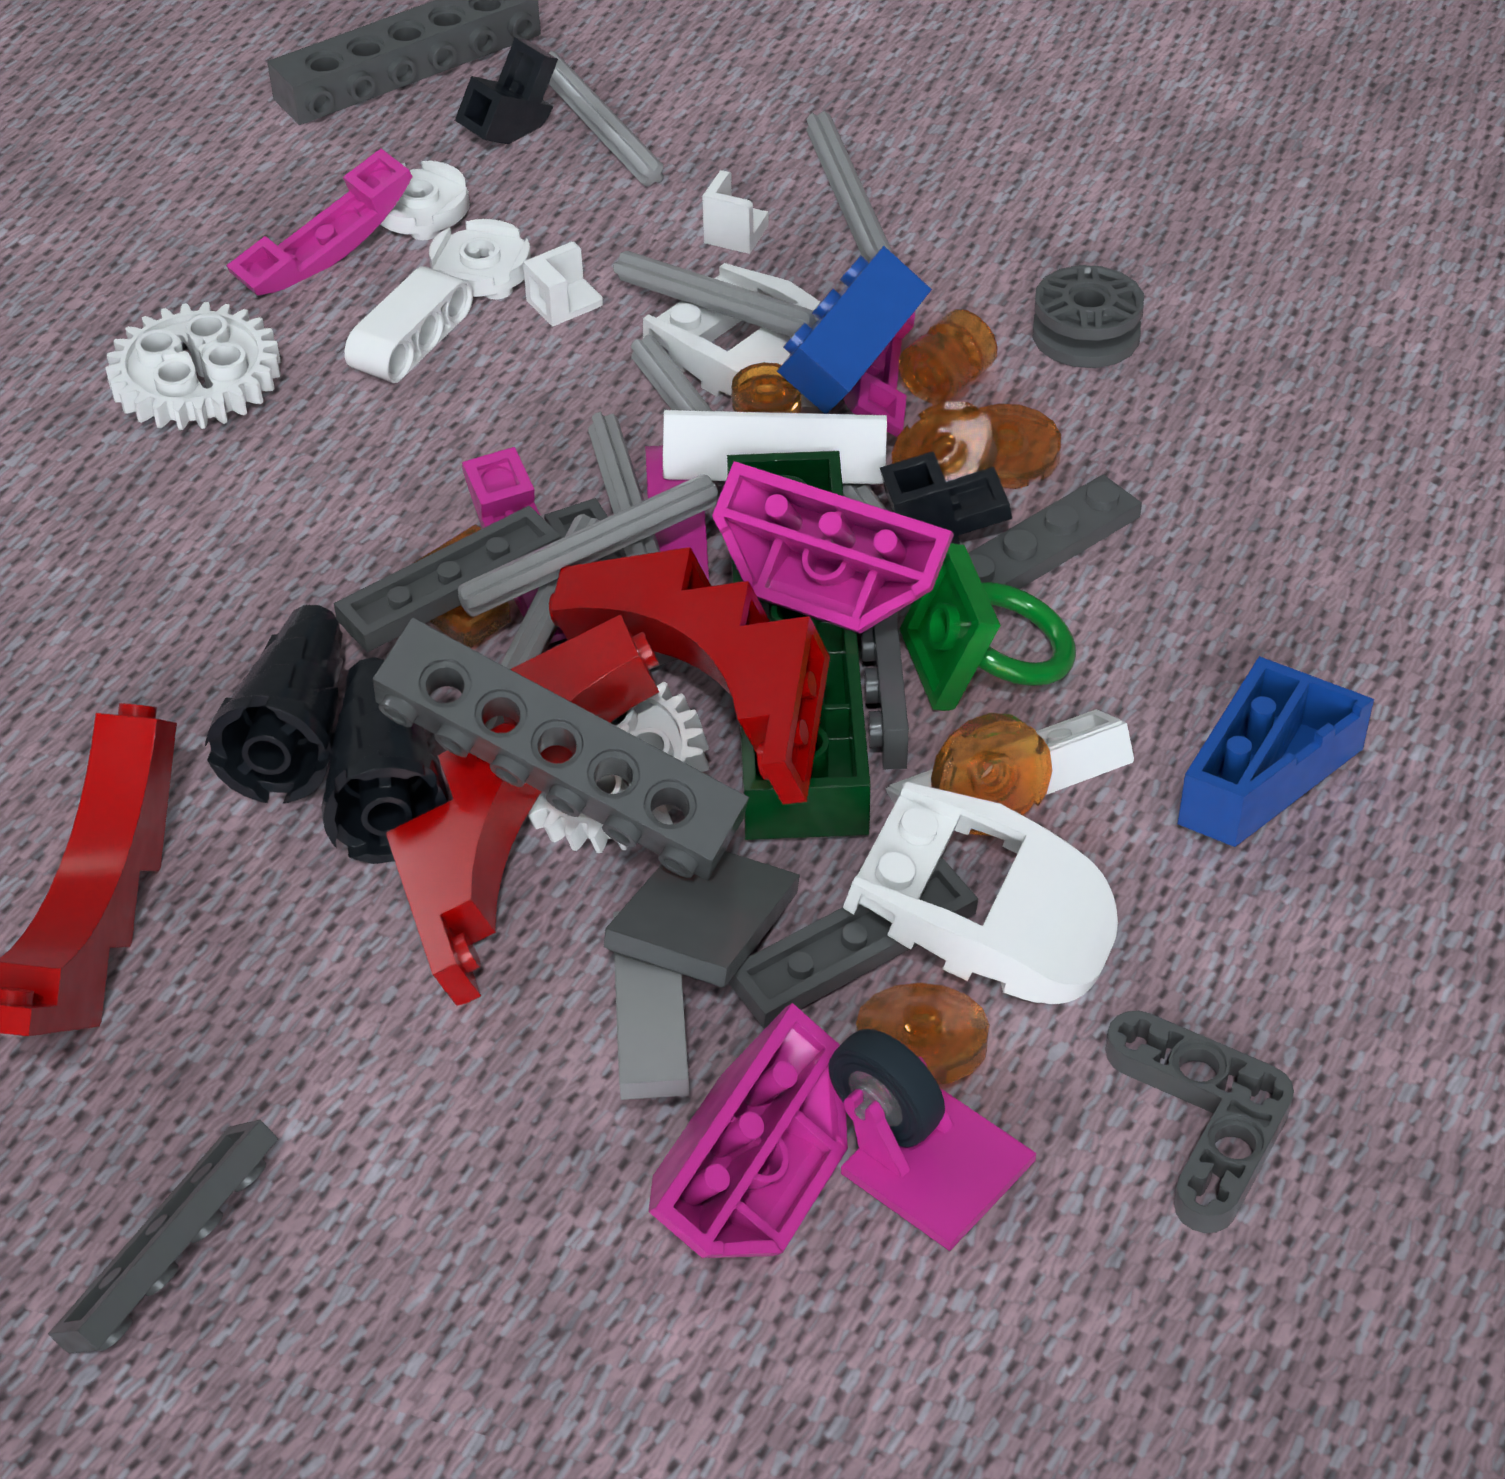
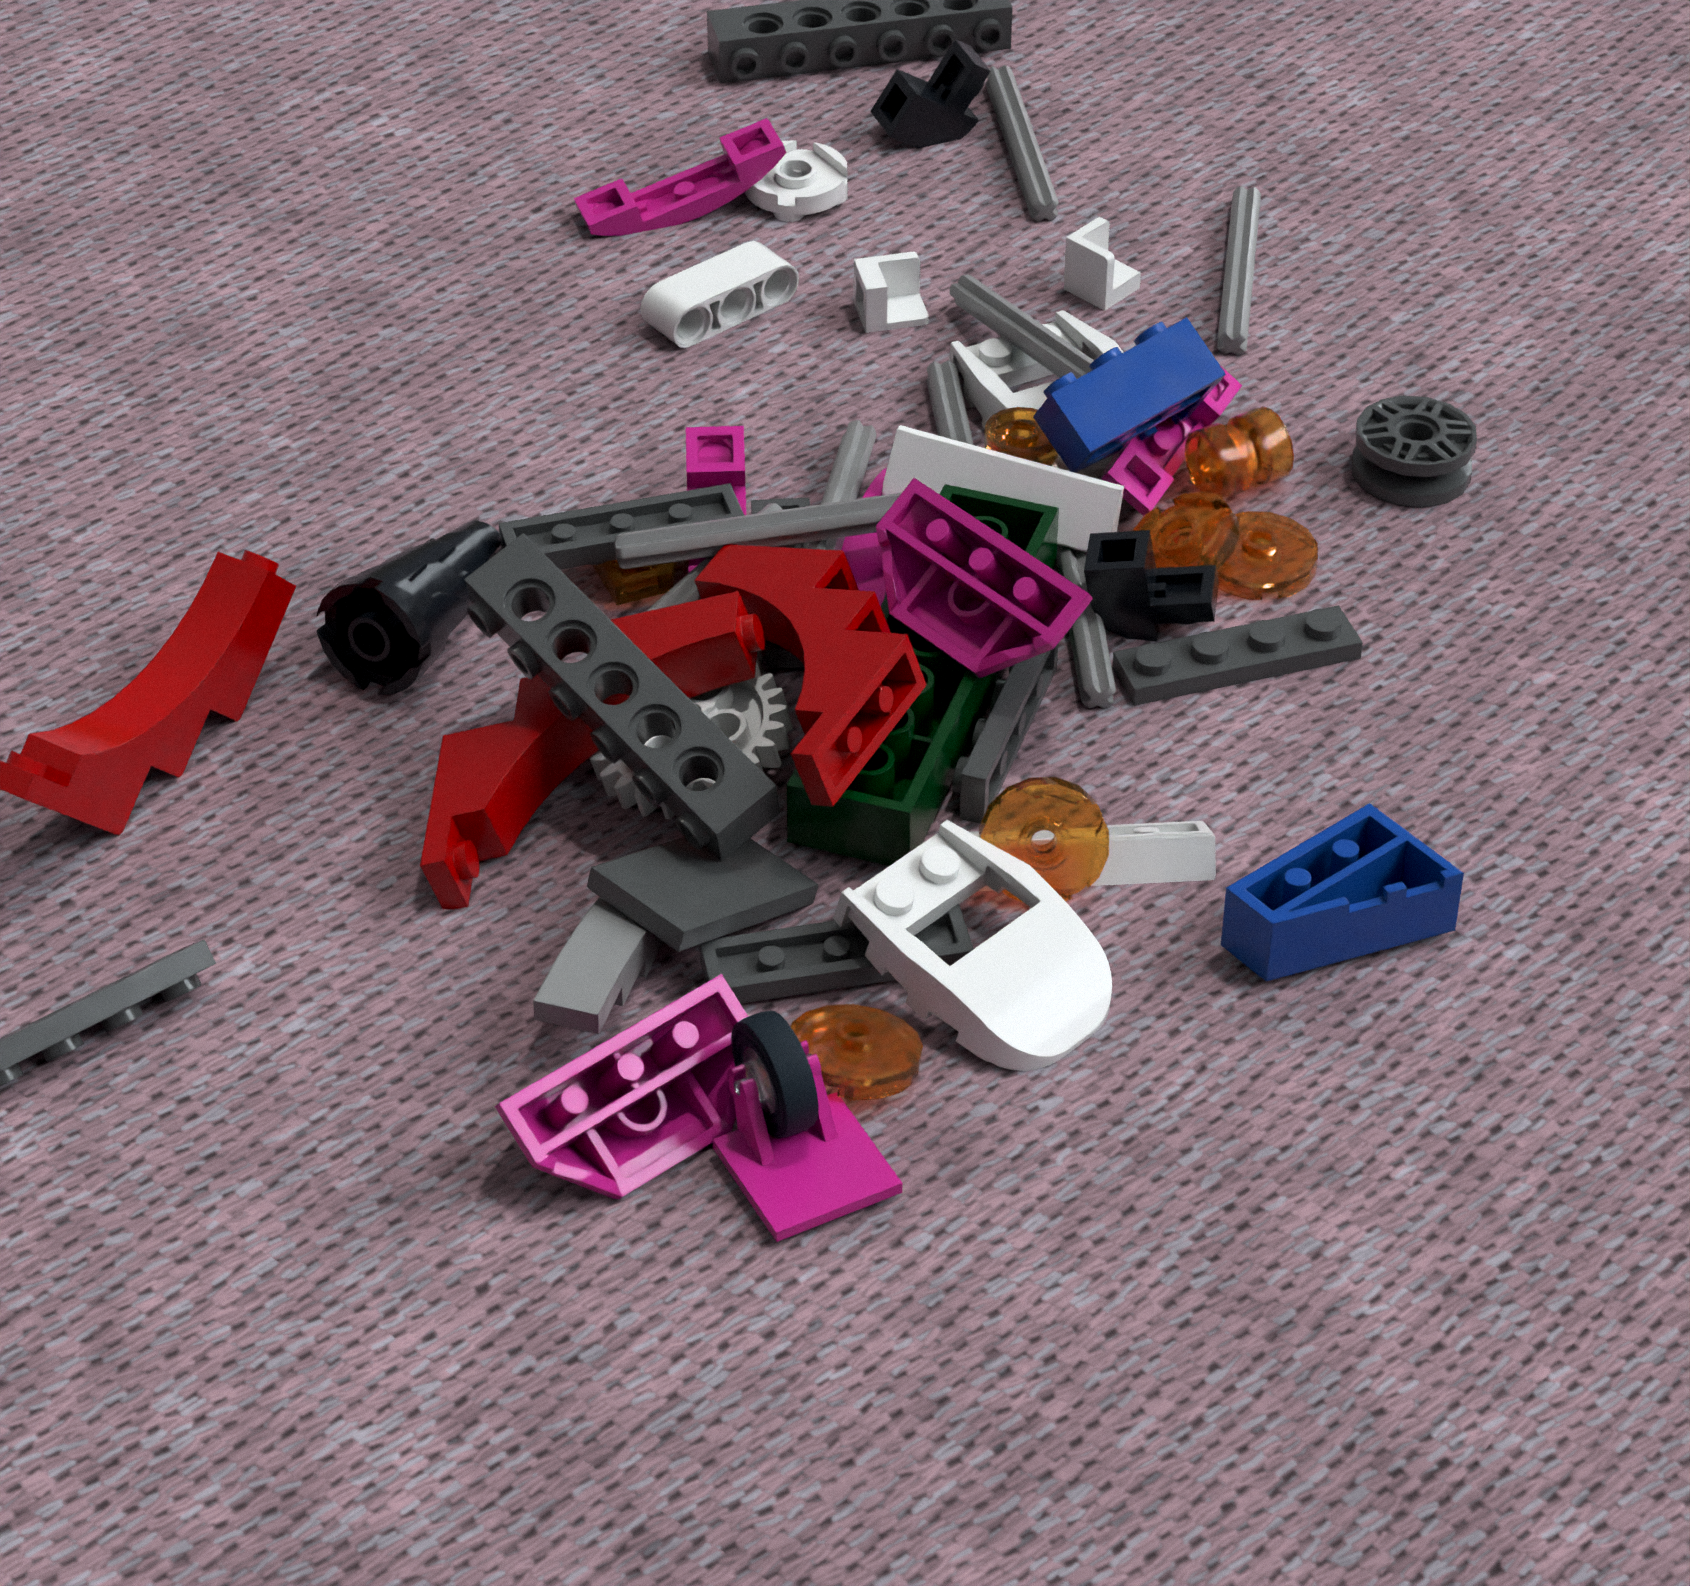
camera: 20 degrees right, 5 degrees down
(161, 381) = (452, 286): white gear -> none
(376, 772) = (455, 687): black cone -> none
(491, 238) = (824, 248): white plate -> none
(955, 624) = (1088, 702): green tile -> none
(1233, 1111) = (1113, 1205): dark grey beam -> none

